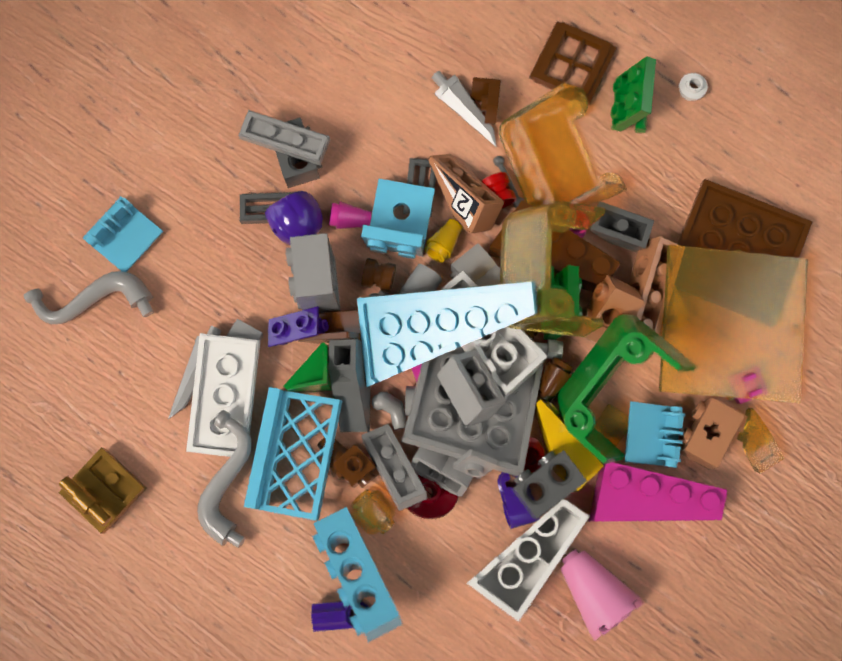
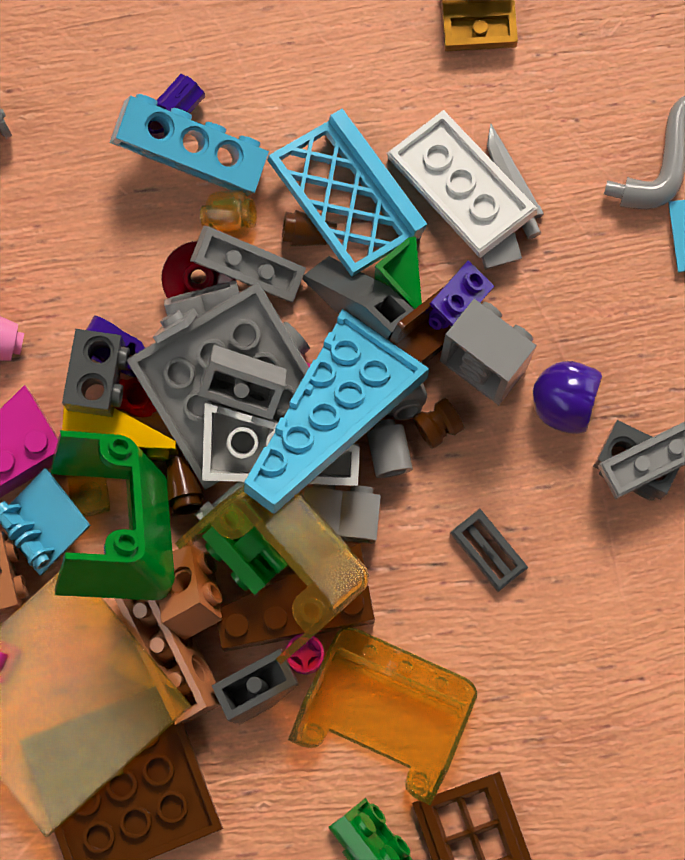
camera: 135 degrees right, 0 degrees up
(208, 511) = (367, 79): light grey animal -> none
(259, 197) = (629, 365): dark grey tile -> none
(348, 216) = (524, 451): dark pink cone -> none
(355, 467) = (280, 231): reddish brown bracket -> none
(393, 406) = (306, 320): light grey arm -> none
(400, 236) = (461, 471): medium azure bracket -> none
(443, 241) = (412, 516): yellow cone -> none
(459, 100) = (542, 676): light grey bar -> none
(466, 195) = (434, 578): nougat slope -> none
(487, 92) = (508, 700): reddish brown bracket -> none
(499, 161) = (381, 629): dark grey hinge -> none
(499, 185) = (409, 615): red wheel -> none
(524, 567) = (51, 296): white wedge -> none

